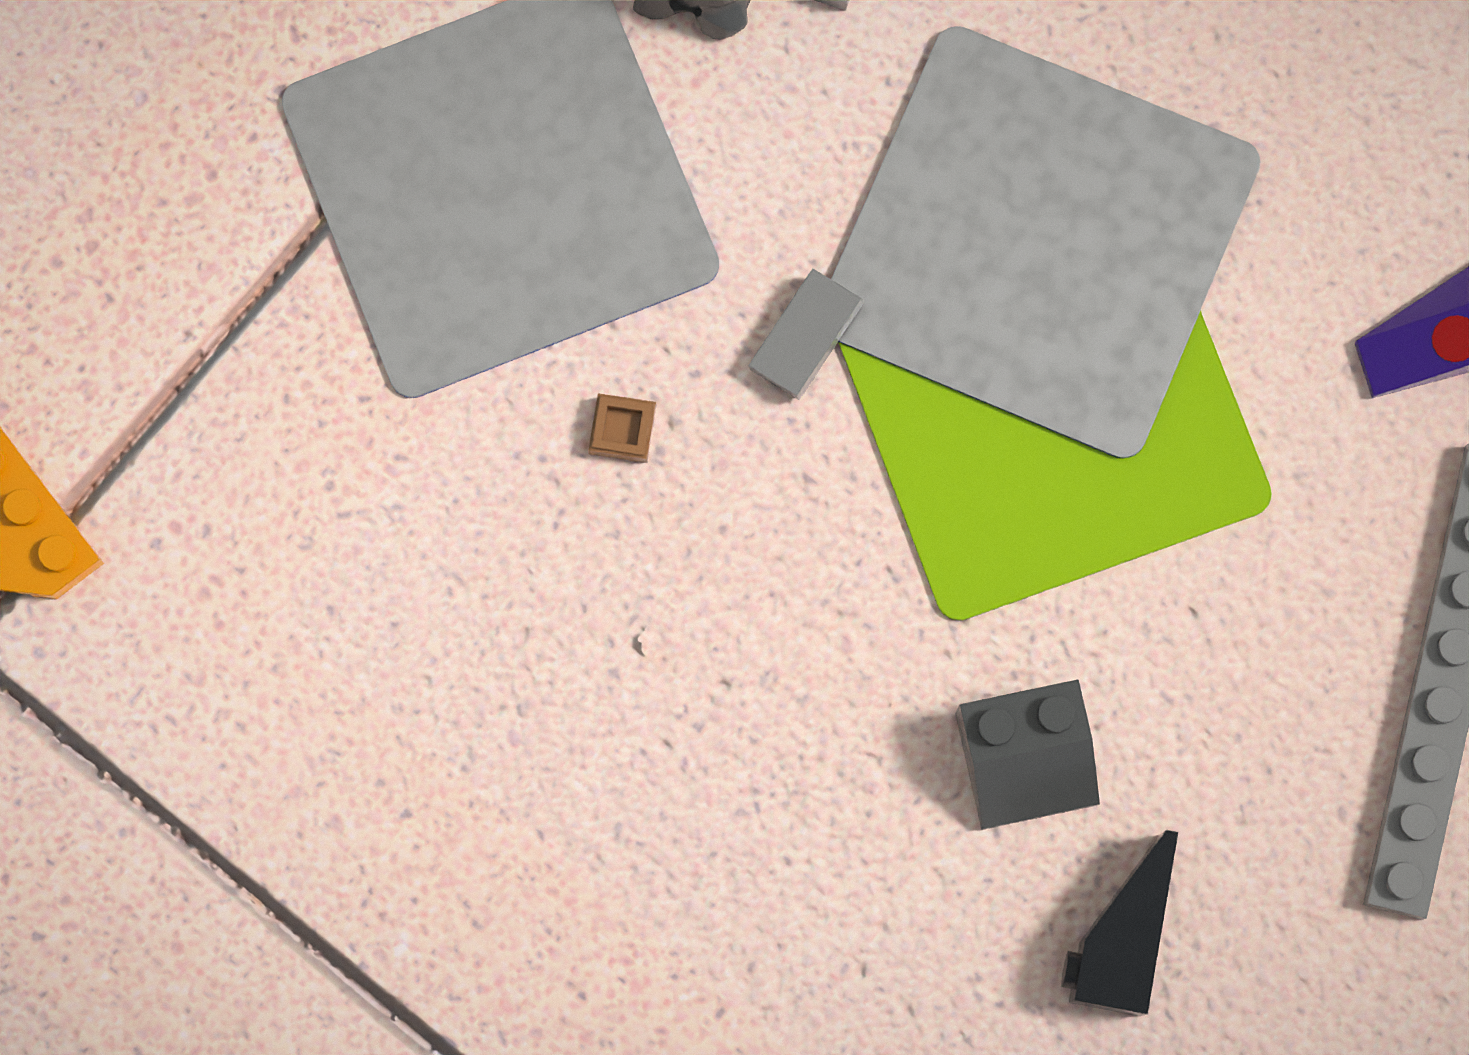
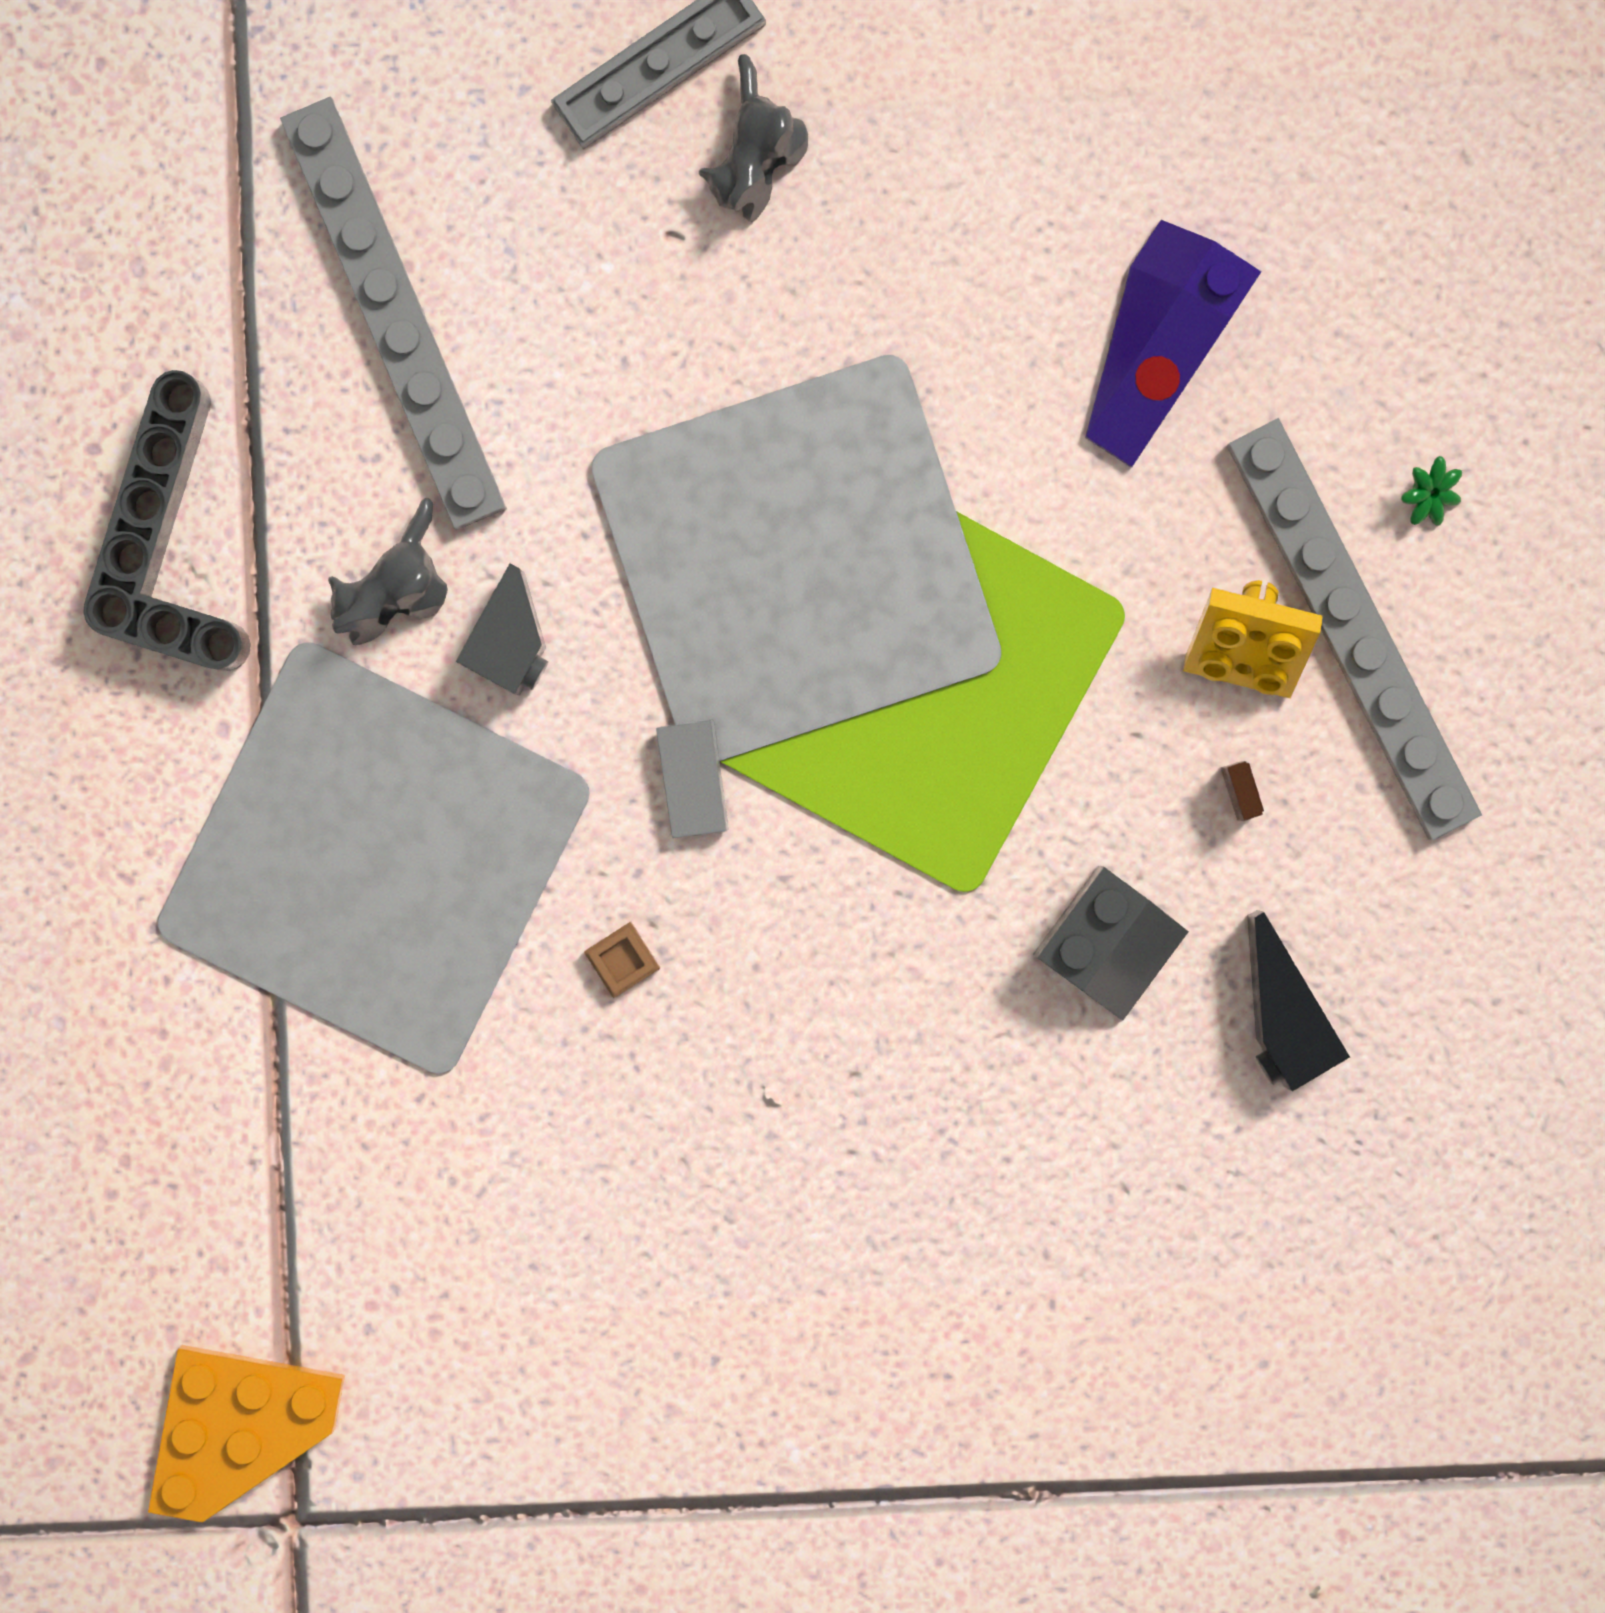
camera: 45 degrees left, 10 degrees up
(758, 99) = (507, 637): none -> dark grey slope
(1243, 724) = (1242, 790): none -> reddish brown tile
(1363, 600) = (1252, 640): none -> yellow plate

